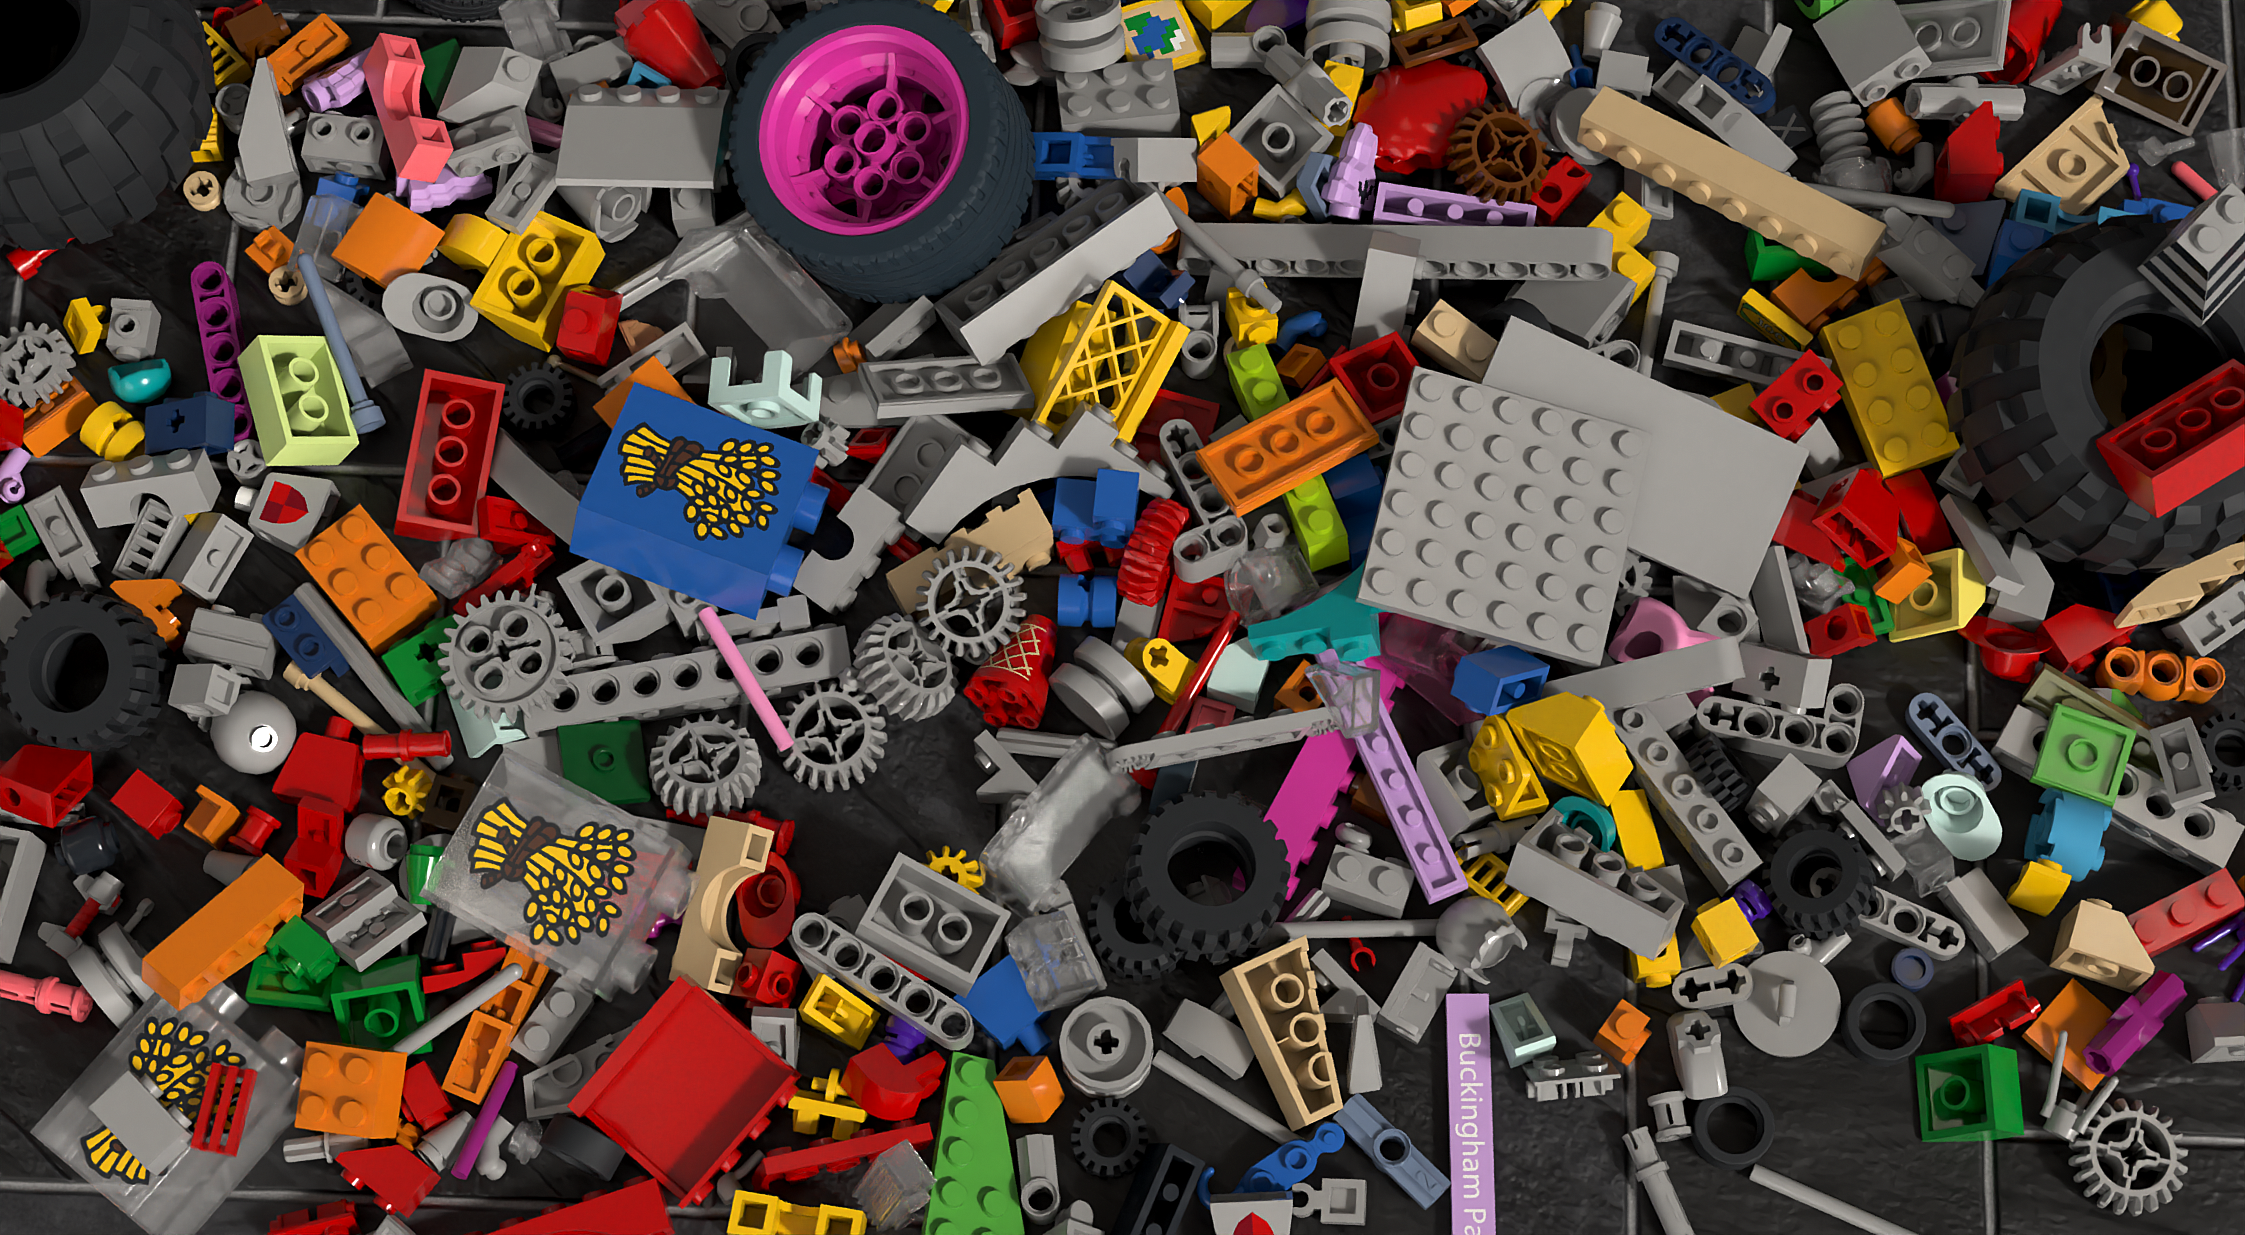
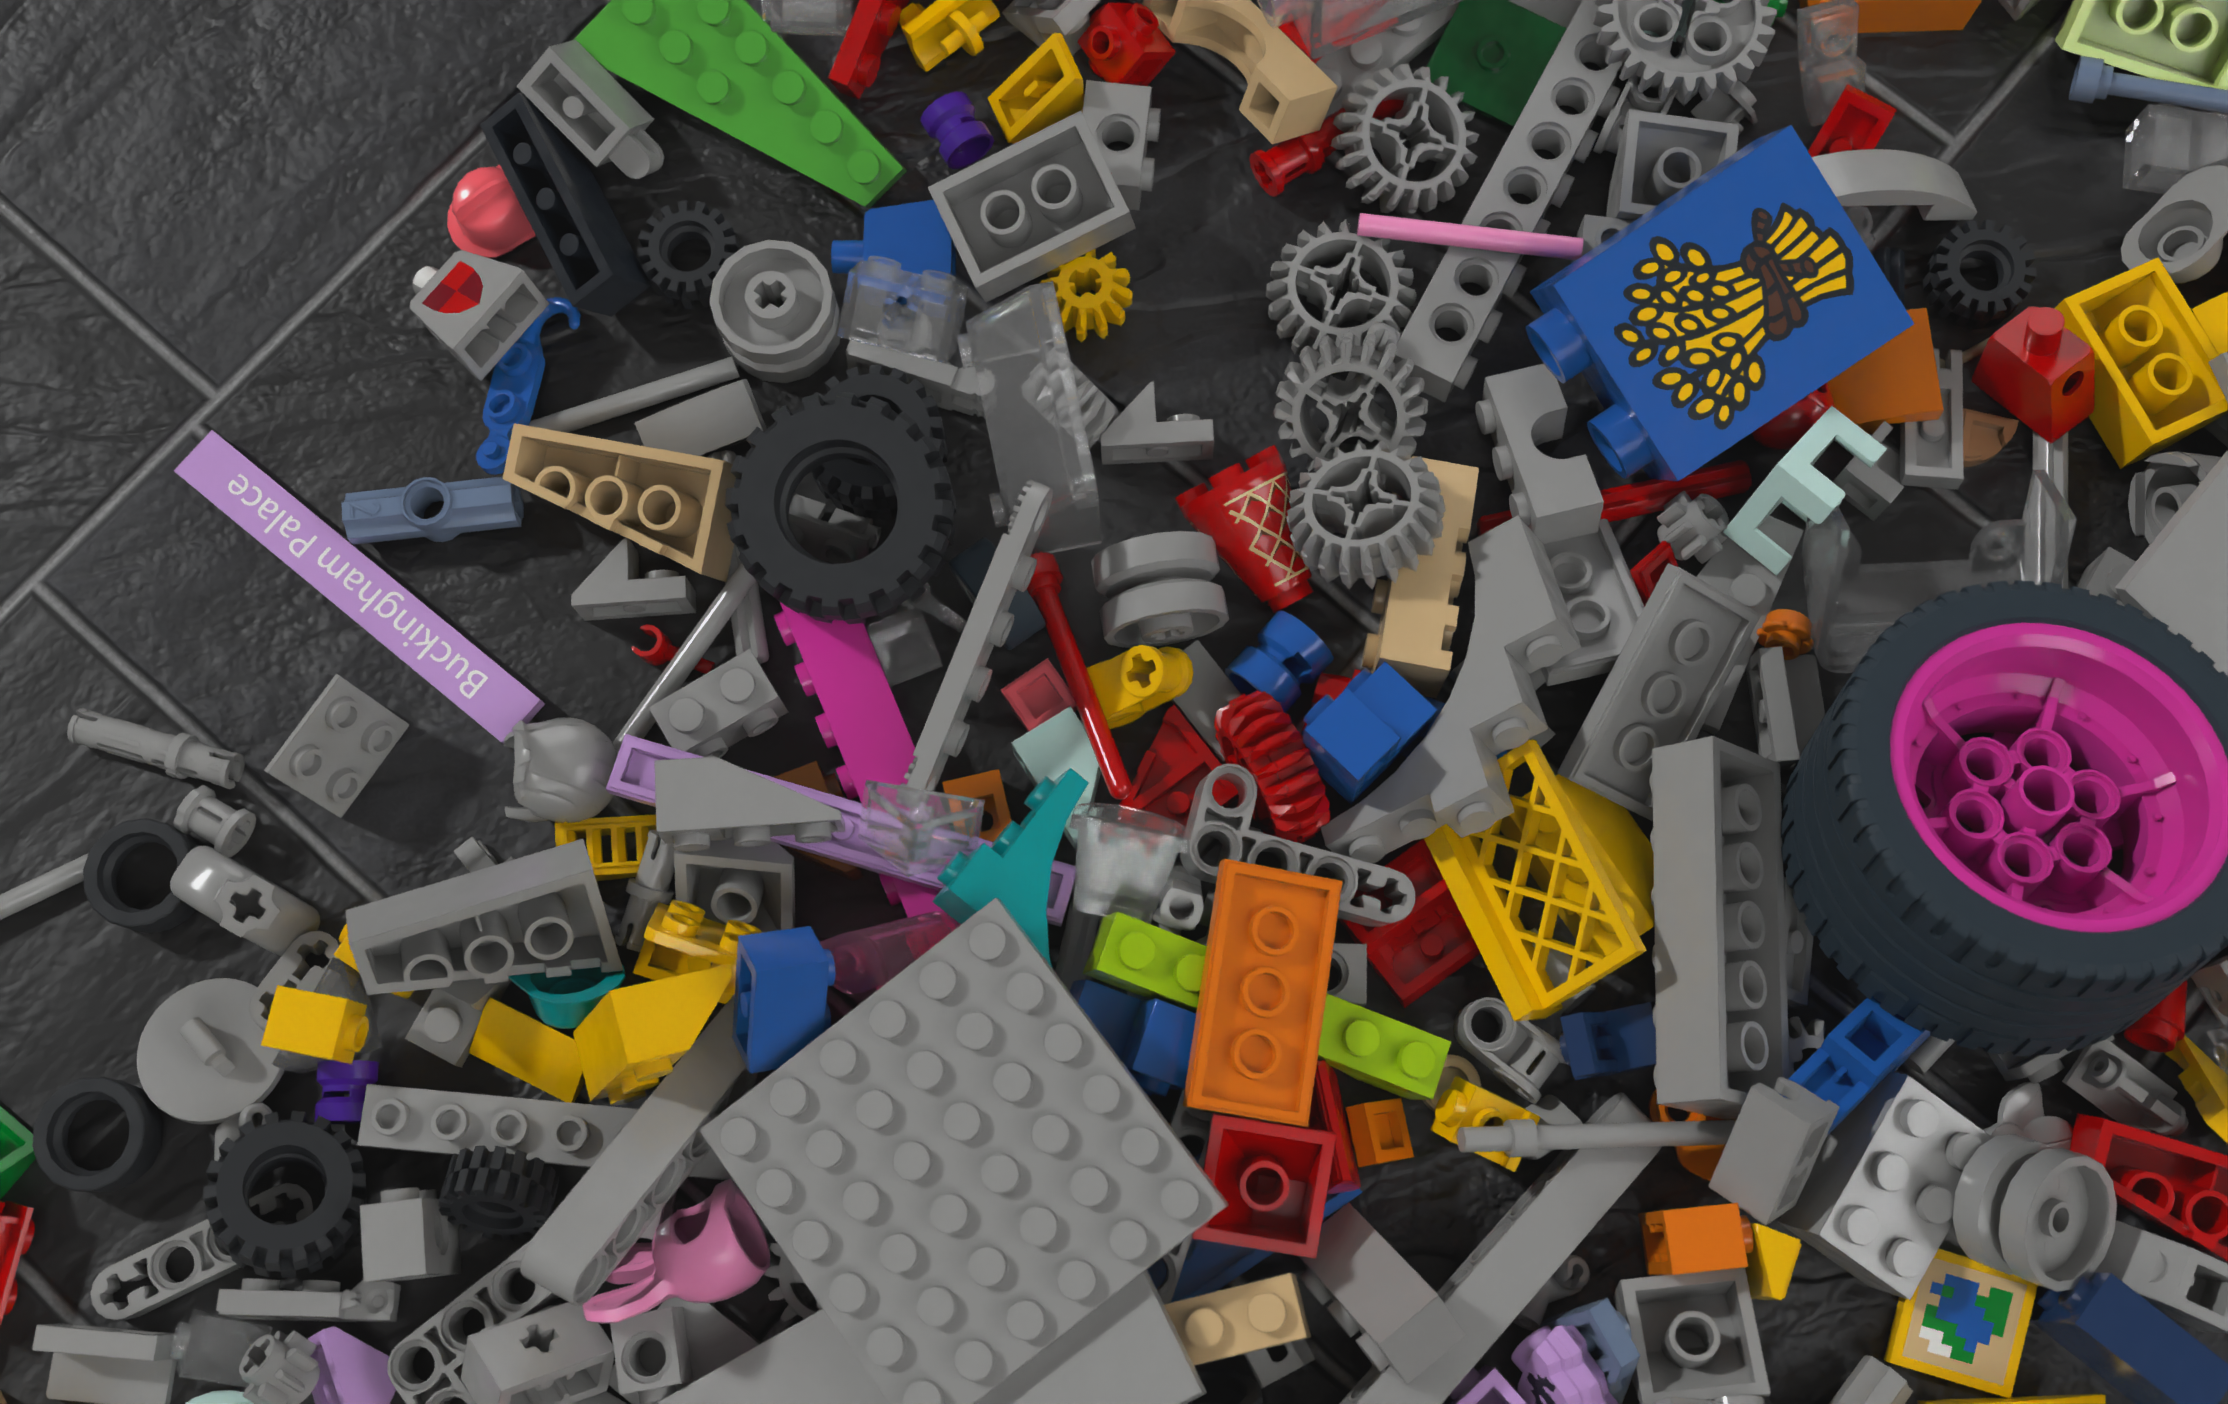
camera: 130 degrees right, 5 degrees up
(449, 457) = (1981, 124): red slope -> none
(510, 576) = (1775, 86): red hinge -> none
(768, 903) = (1204, 104): red piece -> none
(788, 615) = (1509, 343): light grey plate -> none
(873, 963) = (1035, 107): light grey beam -> none
(887, 1086) = (913, 65): red brick -> none
(1029, 1089) = (807, 214): orange panel -> none
(1038, 1175) = (711, 158): light grey piece -> none
(1041, 743) = (1152, 508): light grey axle -> none
(1274, 211) = (1606, 1274): yellow arm -> none
(1297, 325) = (1434, 1177): blue arm -> none
(1339, 1201) = (436, 422): light grey plate -> none
(1353, 834) = (780, 730): light grey piece -> none
(1363, 1058) = (543, 555): light grey slope -> none
(1417, 993) = (566, 665): light grey hinge -> none
(1424, 806) = (720, 801): none -> light grey slope
(1522, 1029) = (431, 742): light aqua slope -> none
(1623, 1033) = (336, 844): orange brick -> none
(1911, 969) = (129, 1224): dark blue tile -> none

